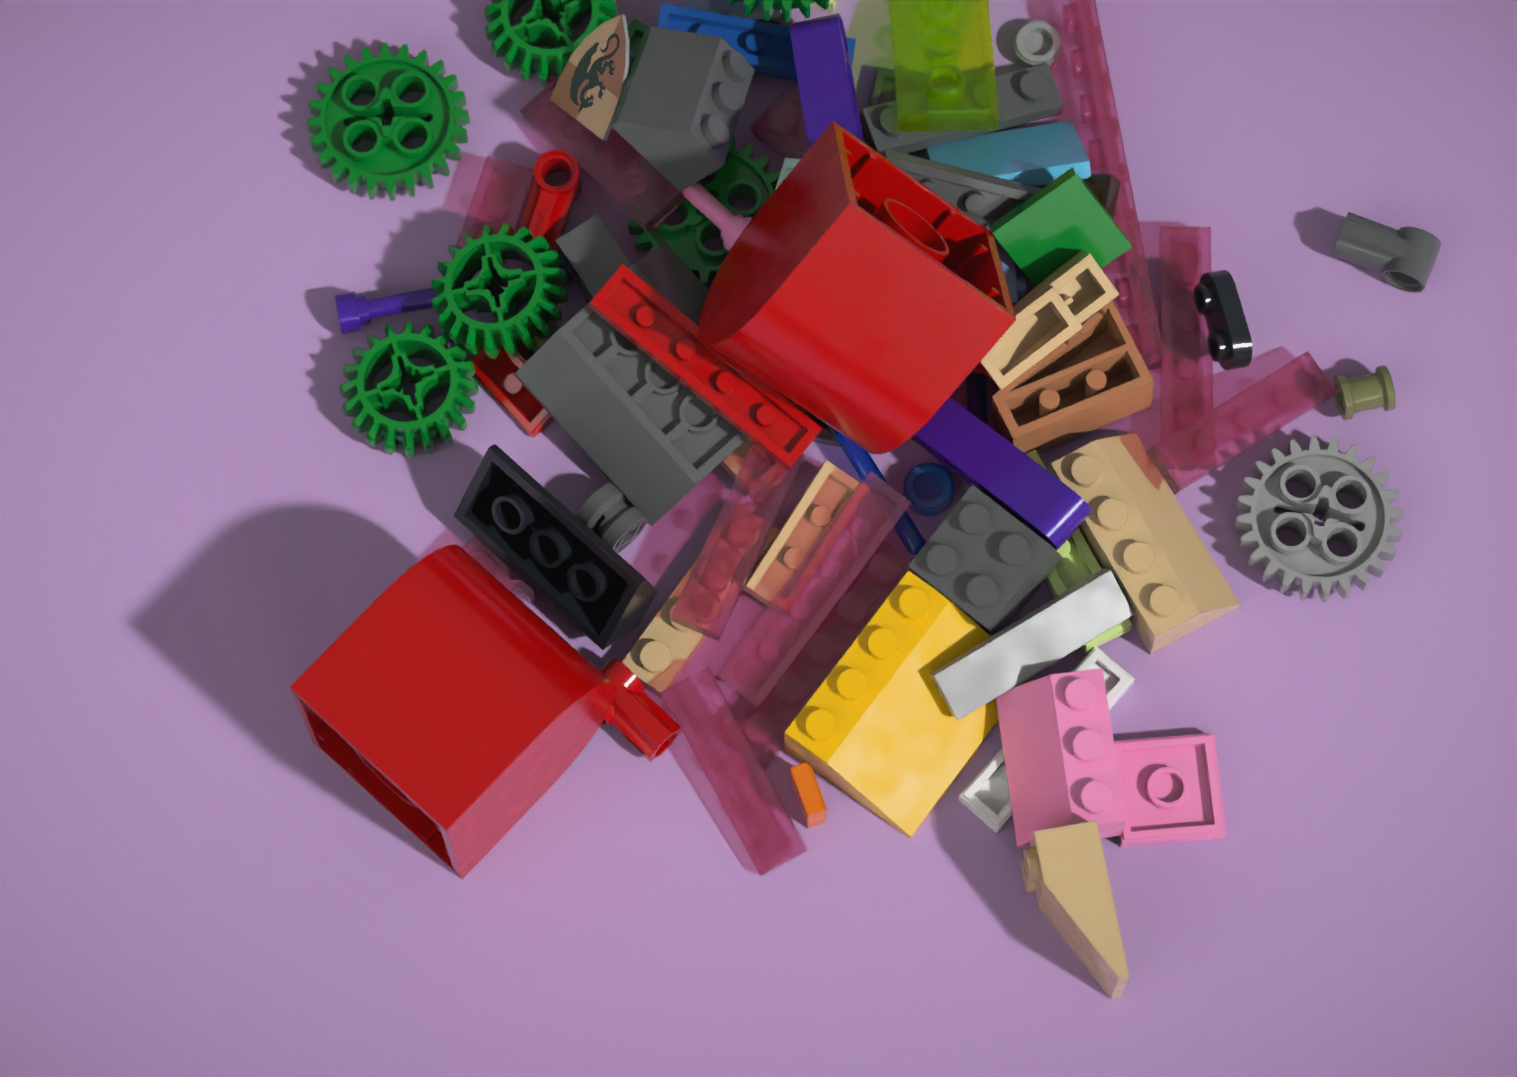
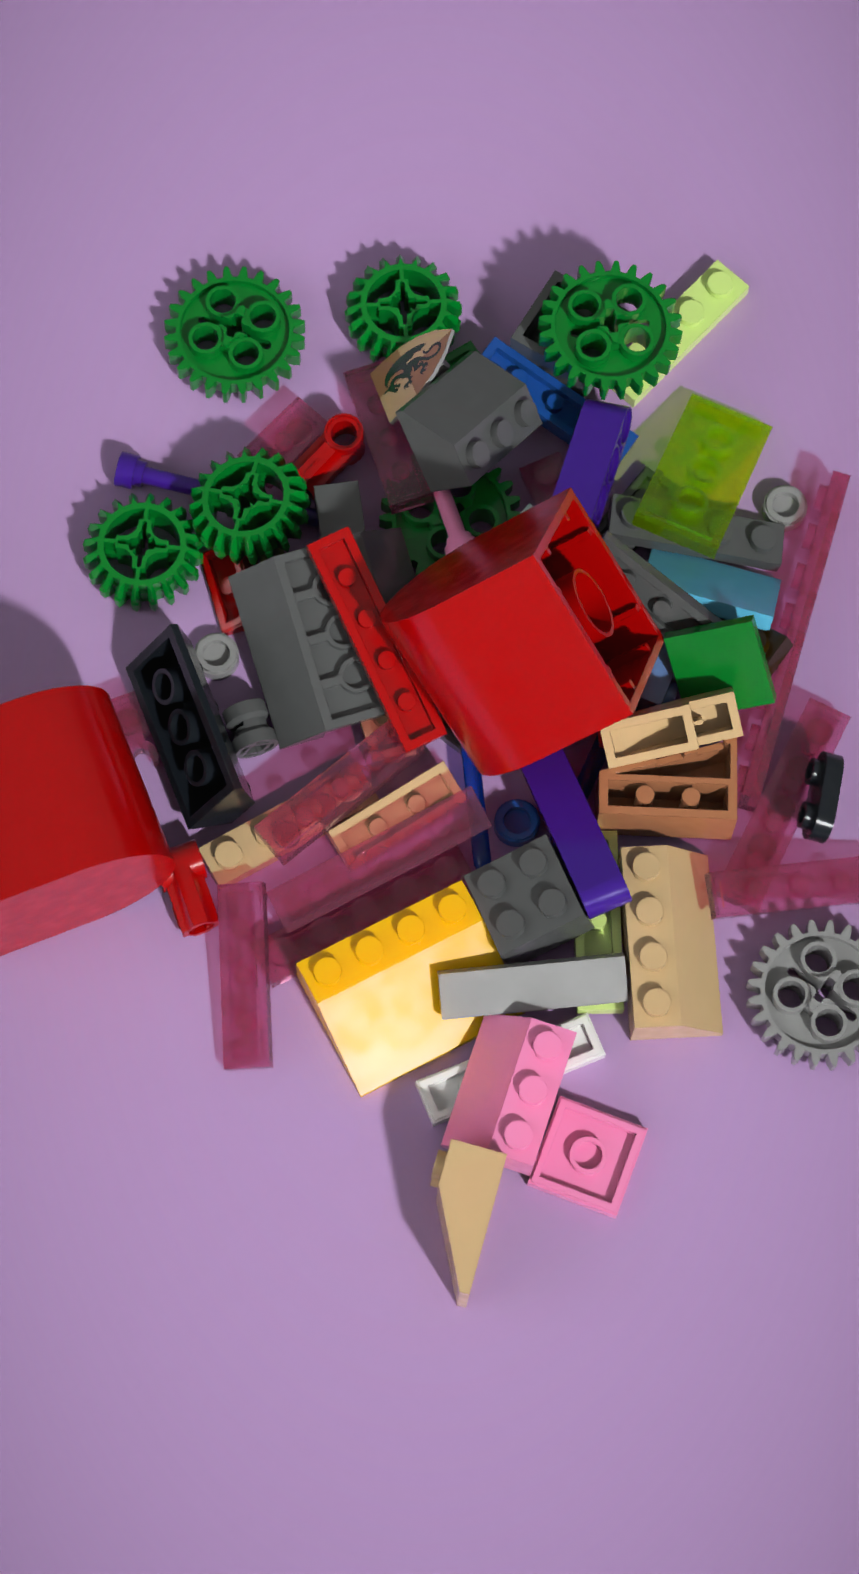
camera: 20 degrees right, 0 degrees up
(539, 458) = (217, 655): none -> light grey tile
(808, 794) = (294, 1022): orange tile -> none

